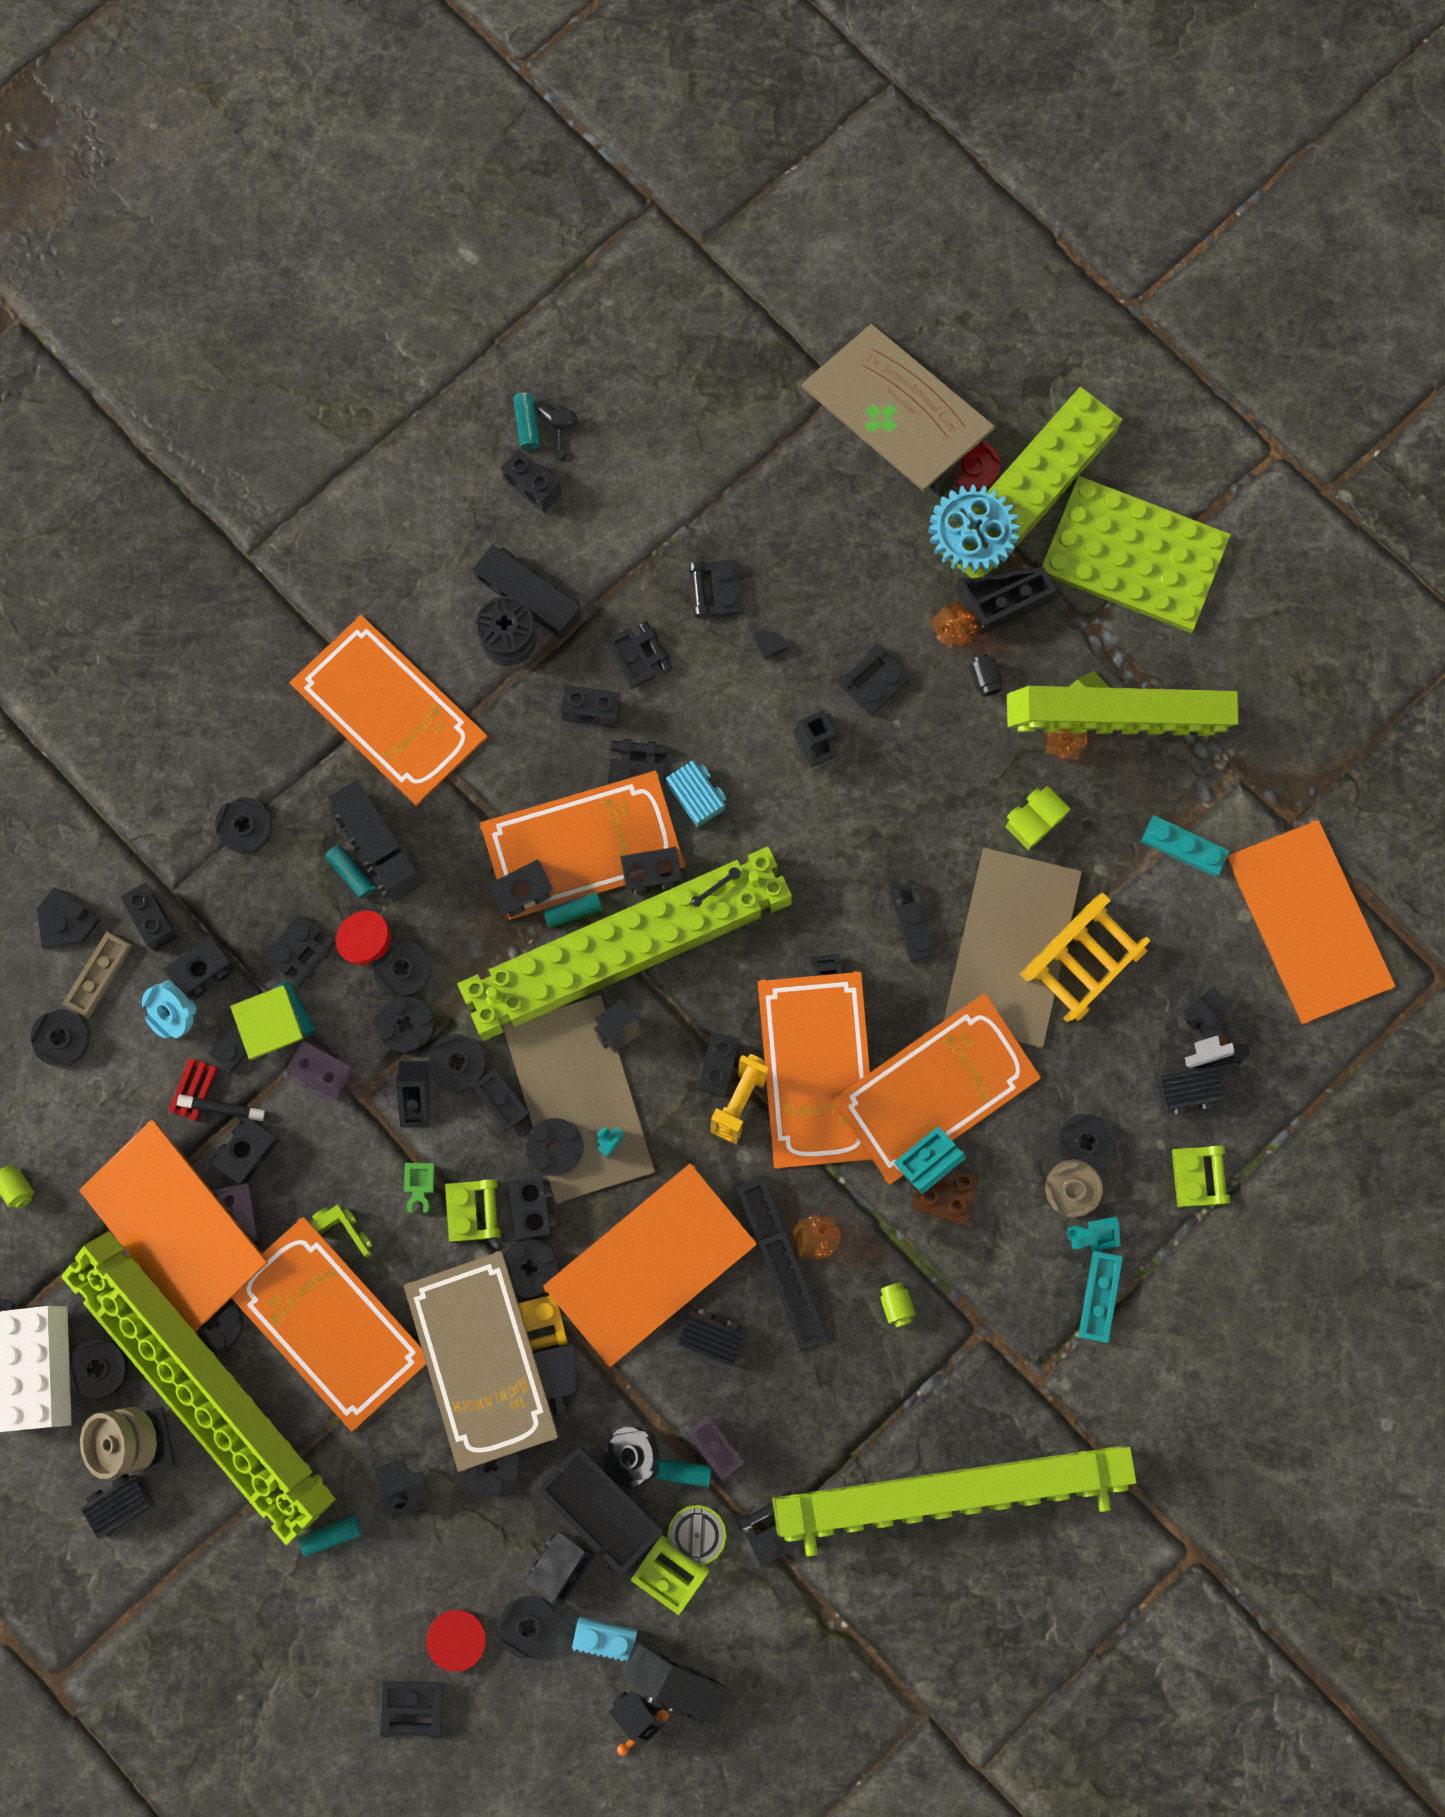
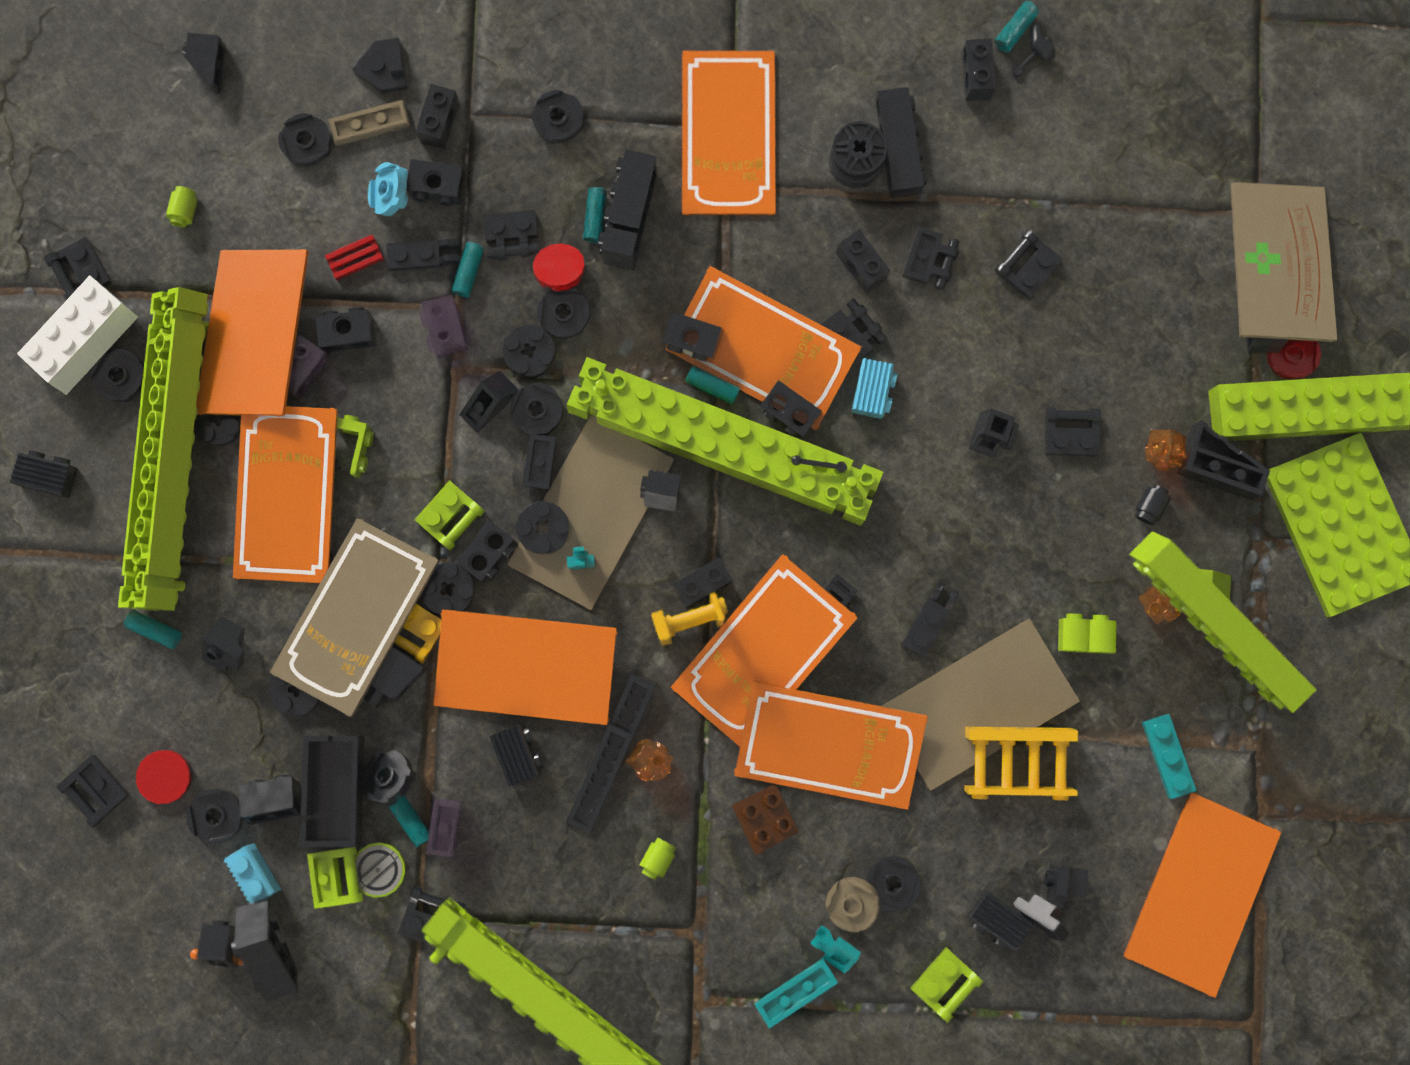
camera: 45 degrees right, 5 degrees up
(118, 1442) = (80, 435): dark tan wheel -> none
(164, 1454) = (107, 456): black plate -> none
(220, 1107) = (358, 286): black bar -> none
(267, 1022) = (441, 260): lime tile -> none
(419, 1181) = (435, 461): bright green plate -> none
(770, 643) = (1027, 337): black tile -> none
(930, 1160) = (776, 787): teal plate -> none
(951, 539) = (1226, 389): medium azure gear -> none

